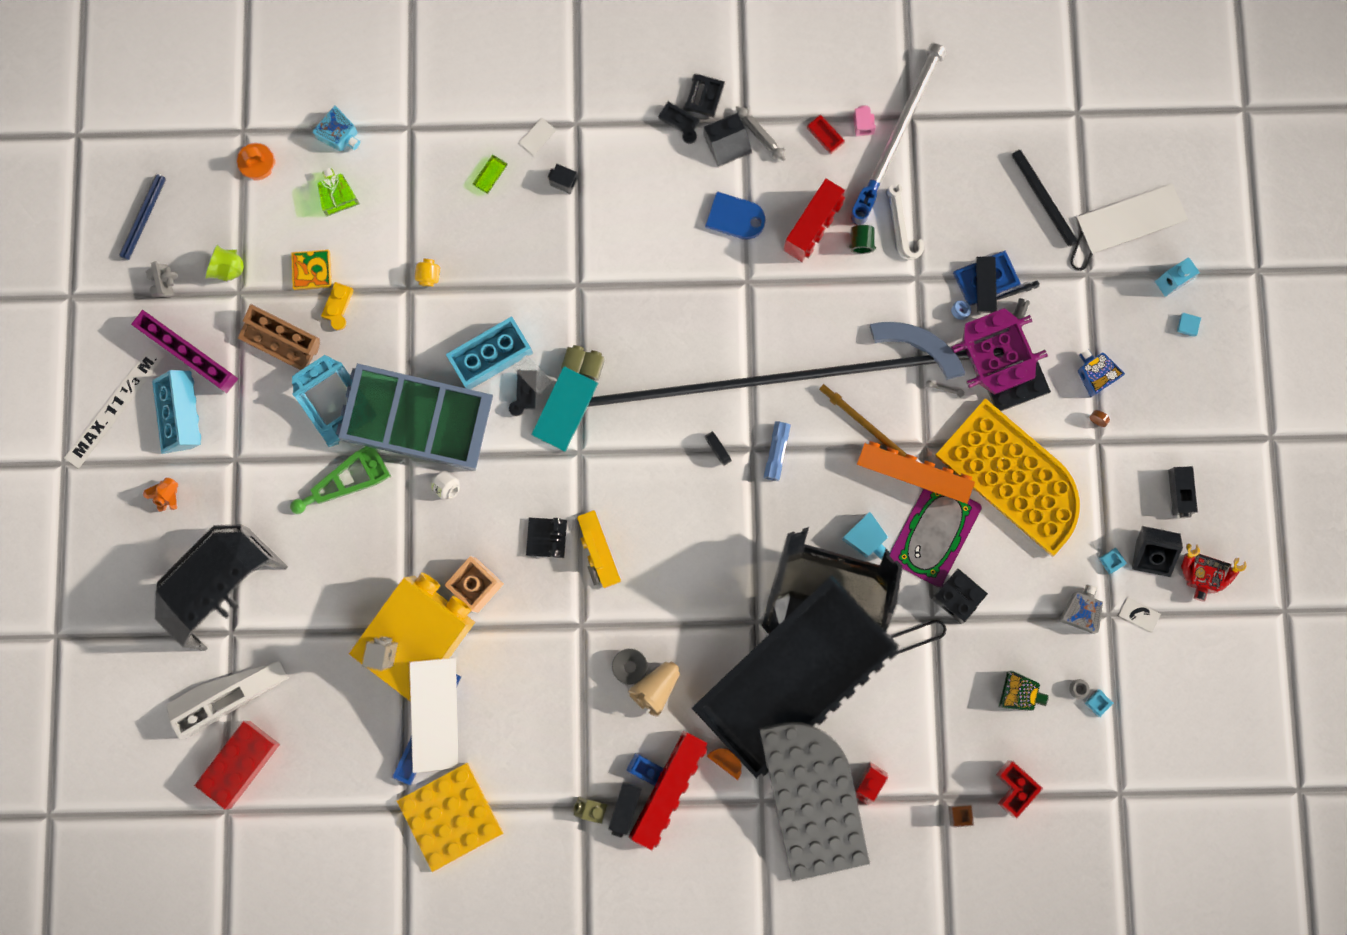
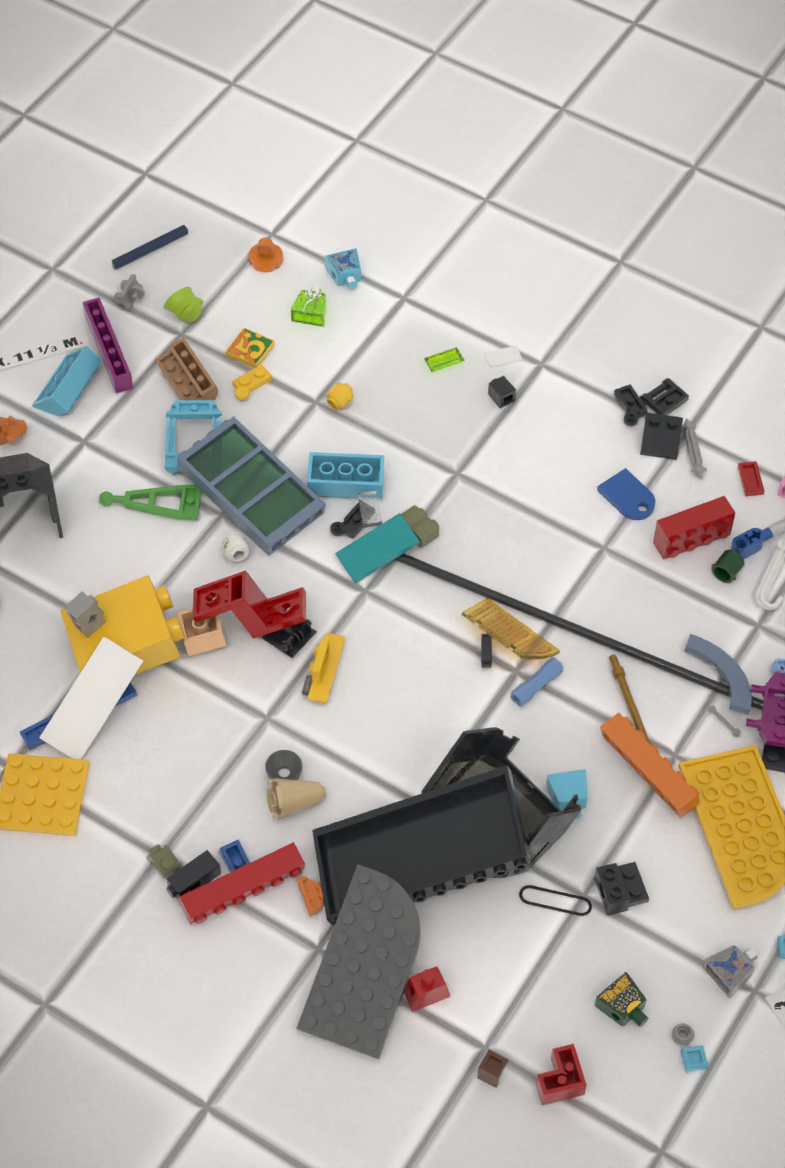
camera: 30 degrees right, 25 degrees down
(501, 541) = (249, 604): none -> red bracket
(724, 418) = (509, 631): none -> clear yellow piece
(934, 536) = (633, 829): sticker -> none

